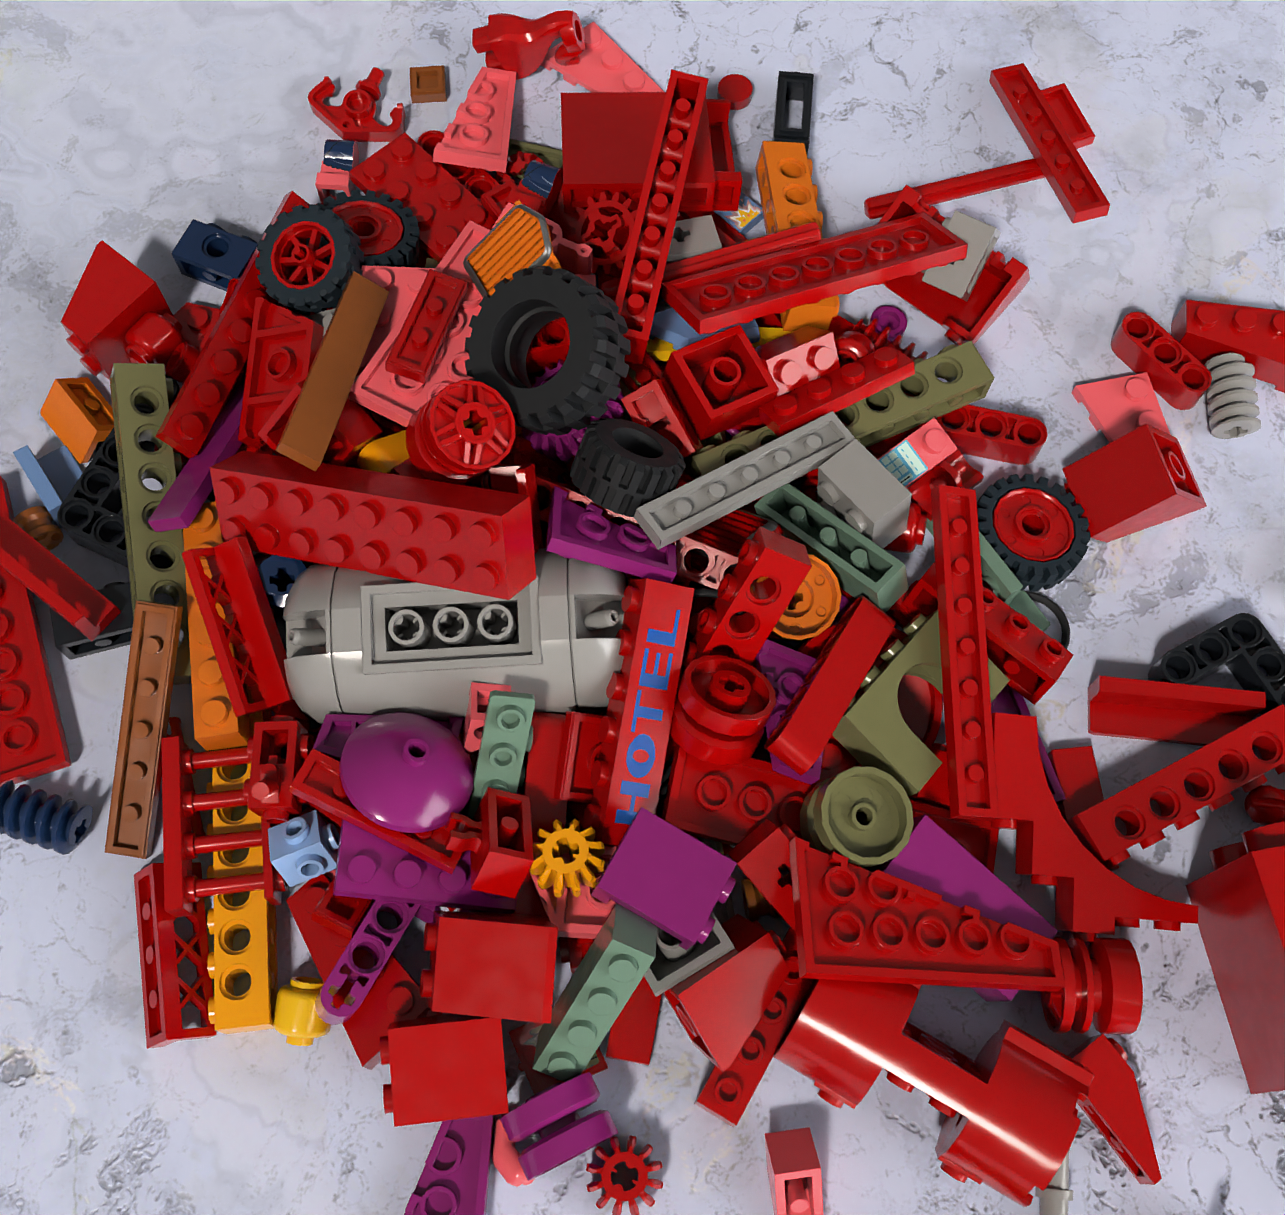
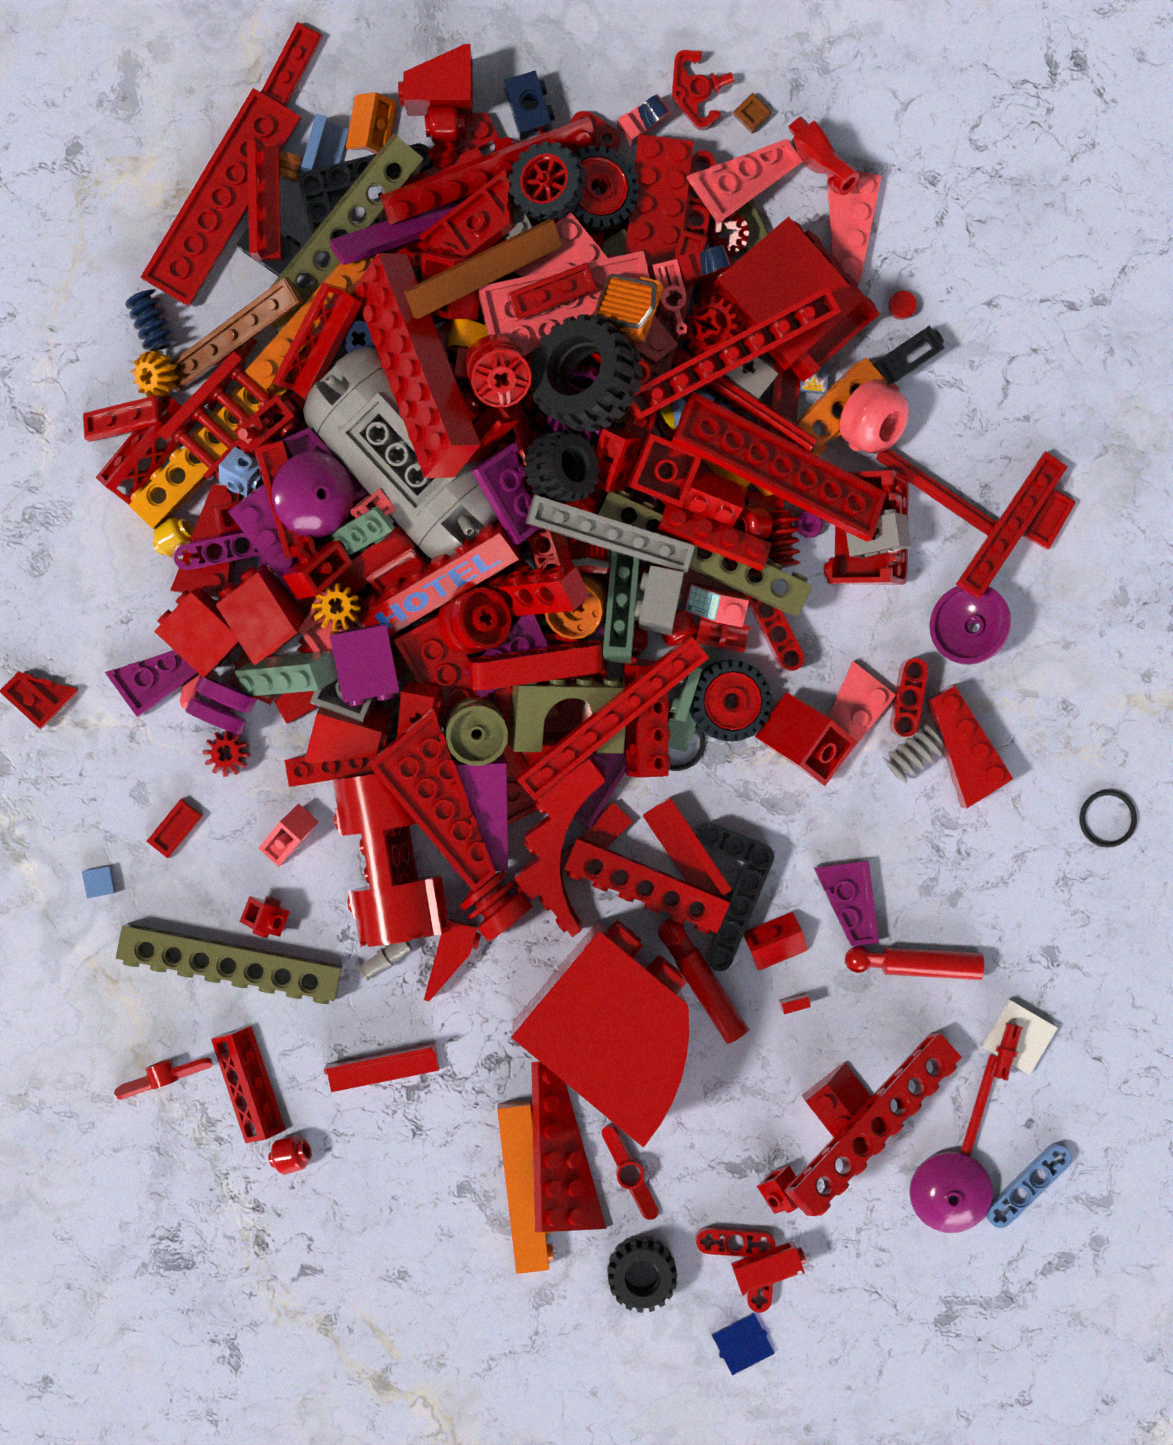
camera: 50 degrees right, 20 degrees up
(100, 864) = (154, 374): none -> light orange gear
(111, 948) = (122, 418): none -> red tile
(833, 172) = (874, 417): none -> coral piece
(1133, 221) = (953, 624): none -> magenta dish

